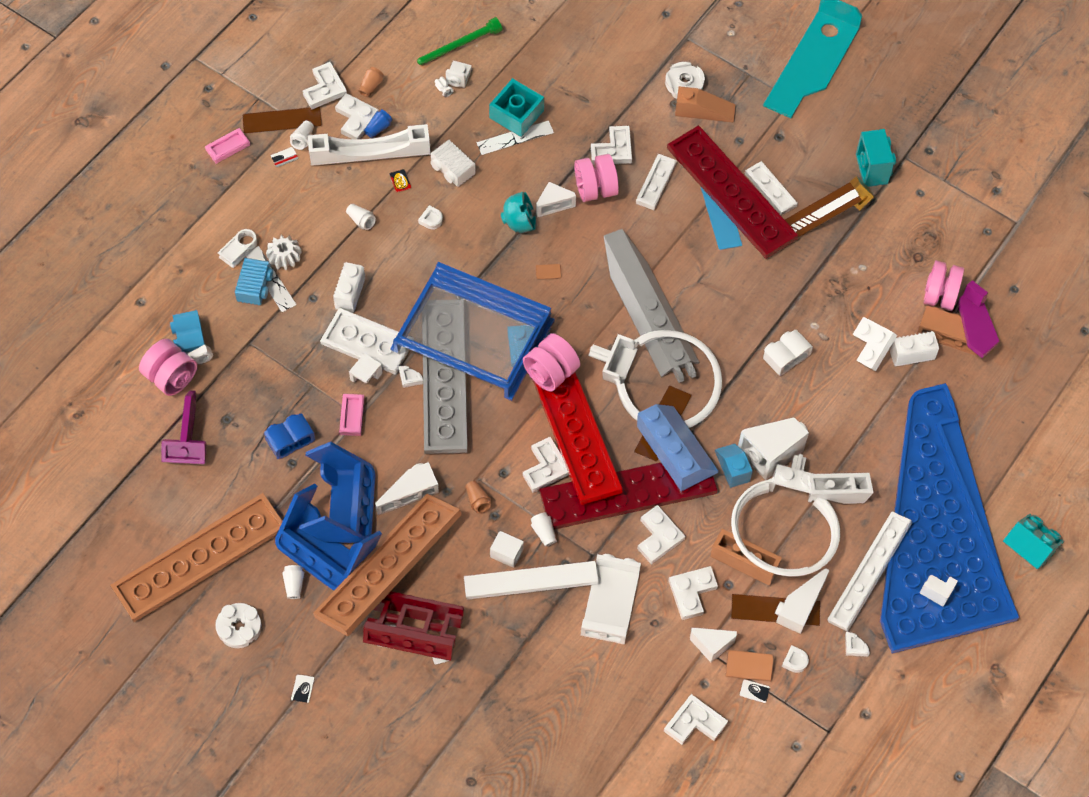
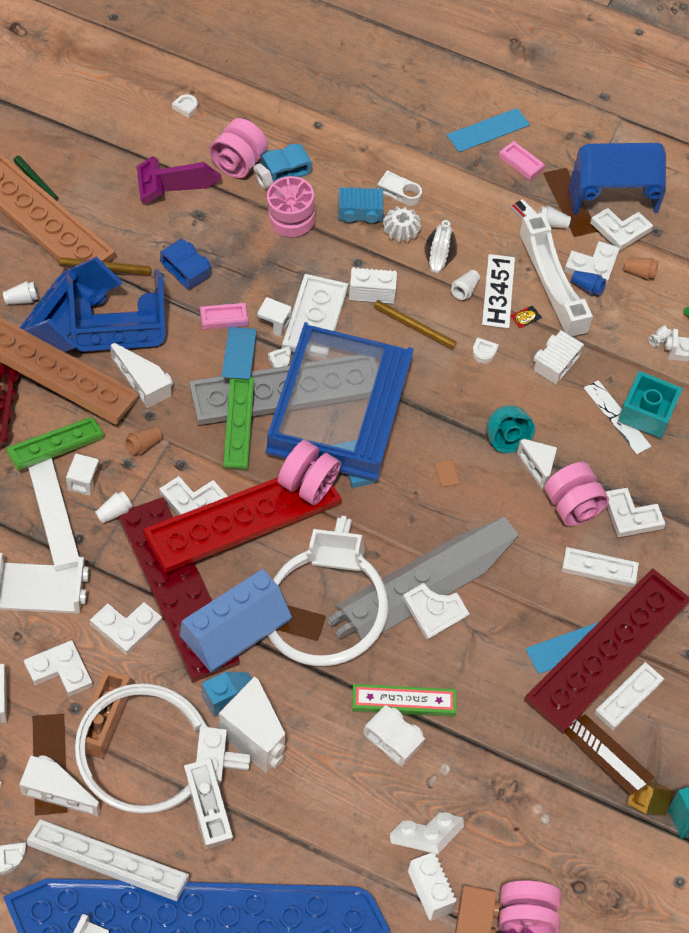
camera: 75 degrees right, 5 degrees down
(88, 410) = (185, 105): none -> white tile
(147, 557) = (21, 163): none -> dark green bar
(182, 165) = (488, 129): none -> dark azure sticker
(248, 334) = (291, 206): none -> bright pink wheel
(275, 286) = (365, 228): white sticker -> none
(279, 505) = (114, 267): none -> pearl gold bar
(281, 71) = (618, 167): none -> blue windscreen
(312, 227) = (440, 247): none -> white hat
(367, 195) = (498, 291): none -> white sticker
(393, 265) = (414, 324): none -> pearl gold bar
(403, 404) = (239, 353): none -> dark azure sticker
(470, 568) = (54, 443): none -> bright green tile
(477, 416) = (238, 424): none -> bright green tile
(681, 303) = (434, 611): none -> white tile
(755, 341) = (404, 699): none -> tile

